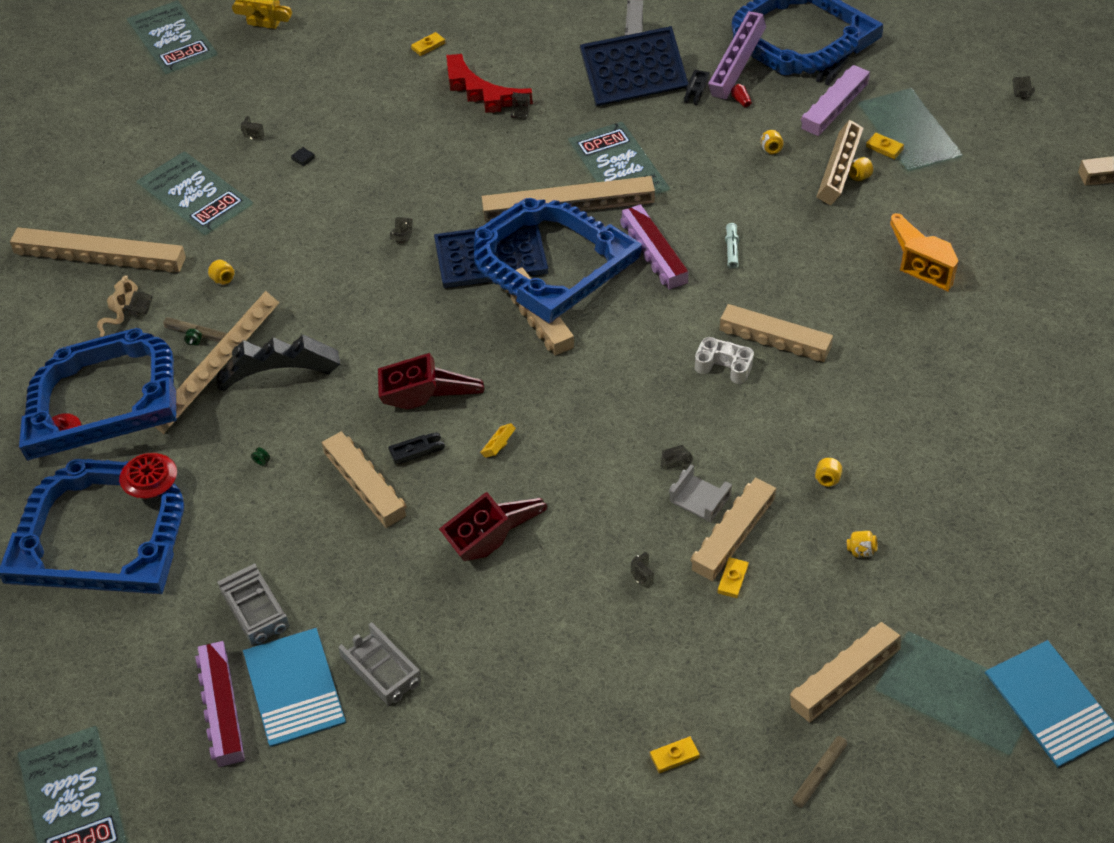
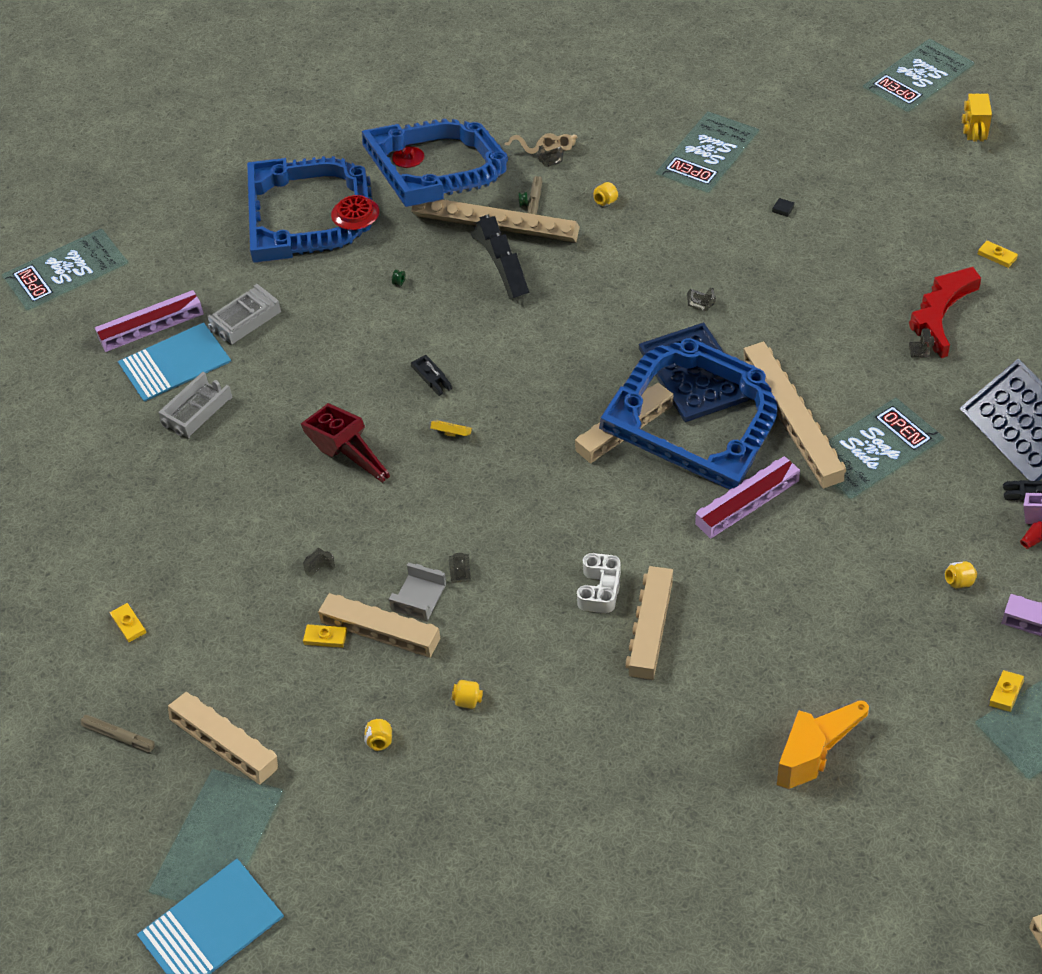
camera: 80 degrees right, 0 degrees up
(98, 249) = (608, 118): tan brick -> none
(252, 130) = (803, 157): clear smoke bracket -> none
(364, 479) = (386, 348): tan brick -> none
(417, 379) = (498, 346): dark red slope -> none
(732, 248) = (784, 563): light aqua pin -> none
(840, 162) = (947, 642): tan brick -> none
(861, 169) = (948, 668): yellow head -> none

